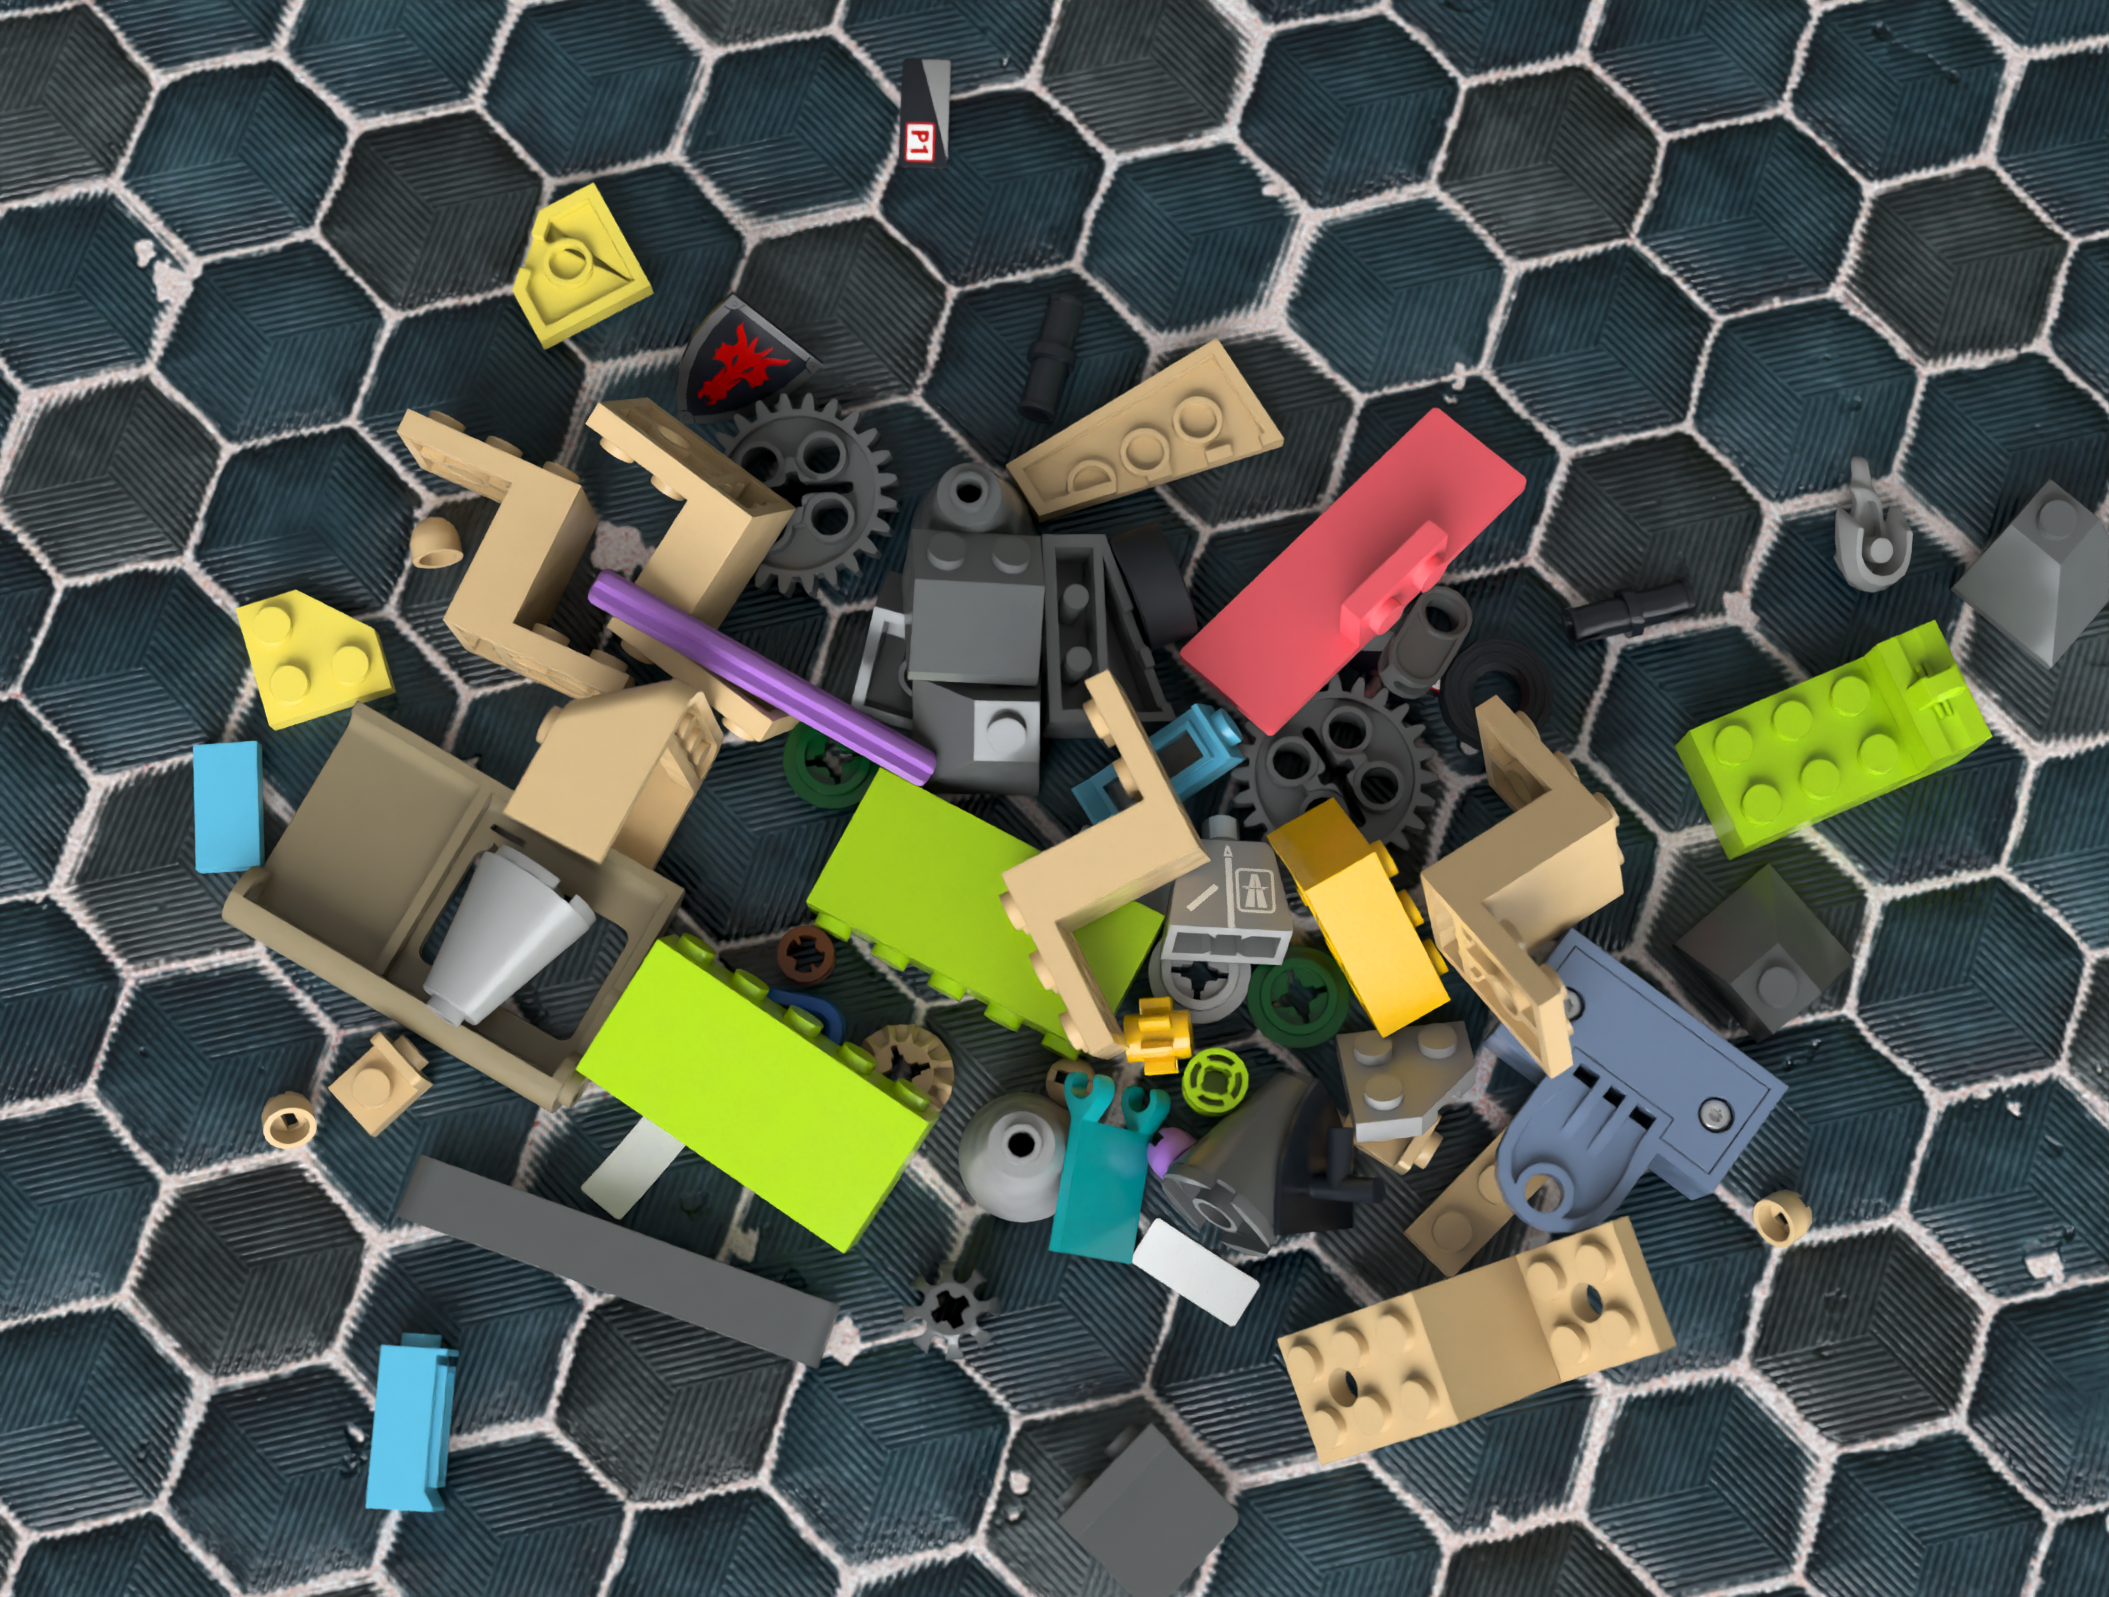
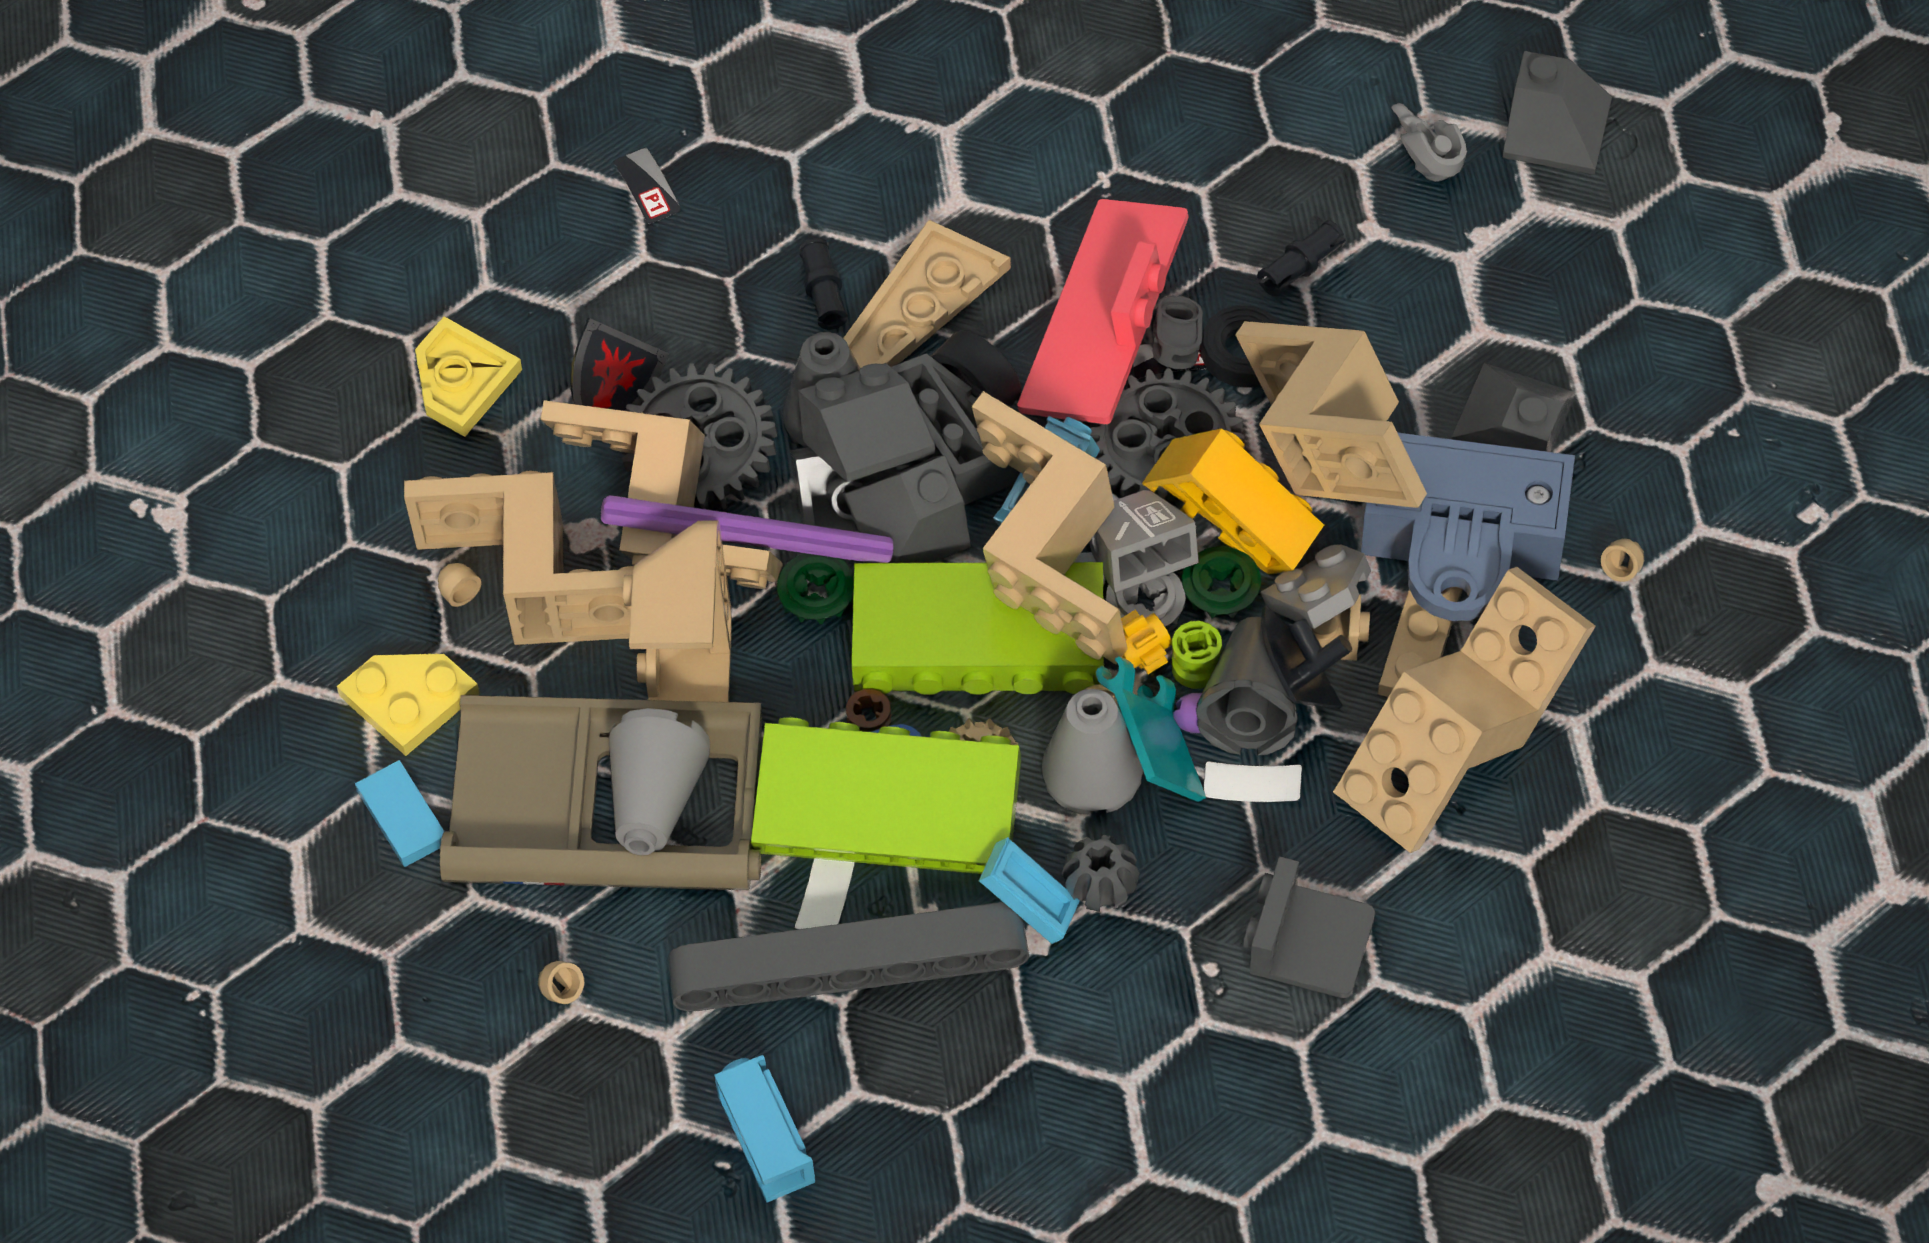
camera: 25 degrees left, 20 degrees down
(383, 1082) = (614, 927): tan bracket -> none
(853, 1296) = (1029, 890): none -> medium azure tile
(1833, 741) = (1482, 263): lime hinge -> none

